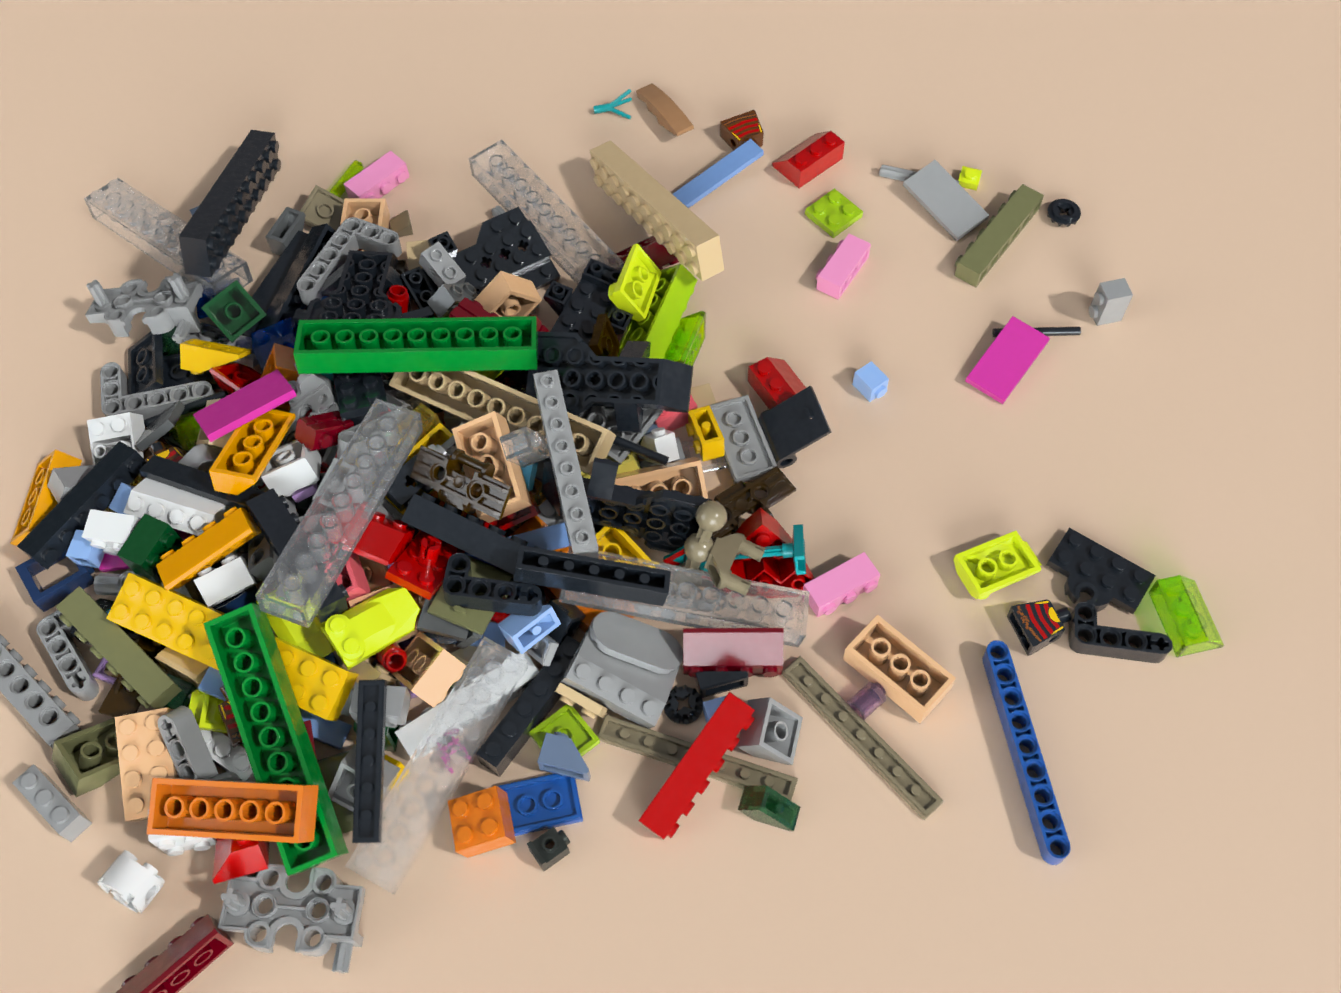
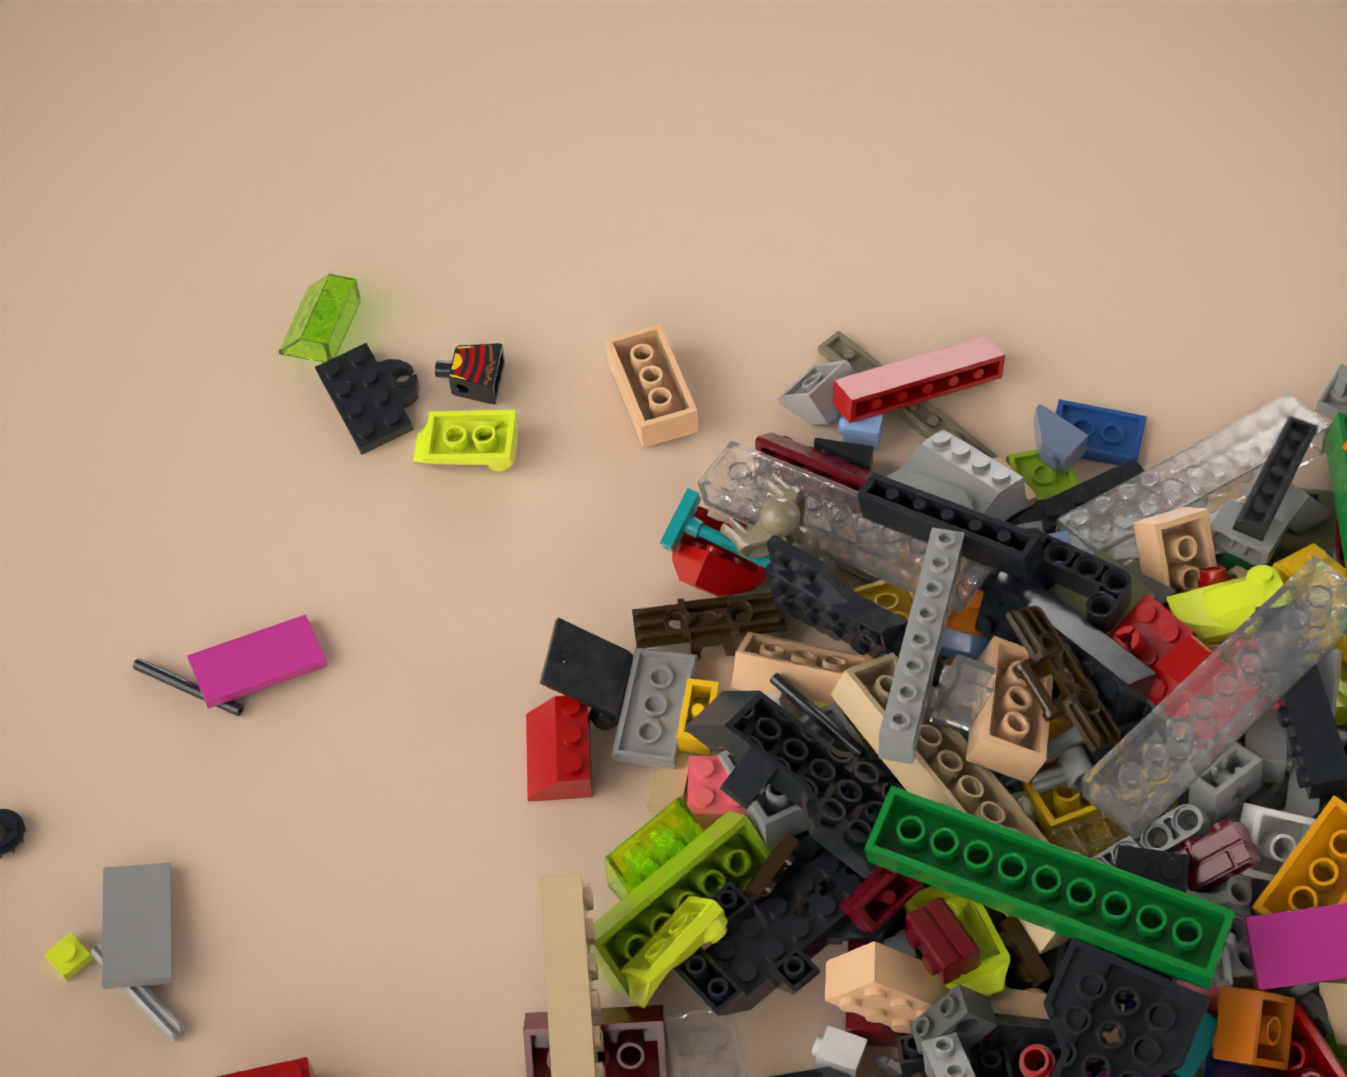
camera: 150 degrees left, 5 degrees down
(481, 821) = (1167, 423): orange brick -> none
(545, 856) = (1106, 385): pearl dark grey brick -> none
(684, 715) = (883, 456): black gear -> none
(768, 807) = (867, 329): clear green slope -> none
(833, 213) = (299, 995): lime plate -> none
(842, 266) = (355, 890): bright pink brick -> none
(842, 584) = (646, 493): bright pink brick -> none
(863, 738) = (728, 356): dark tan tile -> none
(867, 699) = (703, 378): brick -> none
(870, 381) = (444, 708): light blue brick -> none
(998, 235) = (113, 835): olive brick -> none
(1024, 761) = (578, 281): blue beam -> none
(1110, 301) = (77, 658): light grey brick -> none
(1150, 646) = (428, 335): black beam -> none

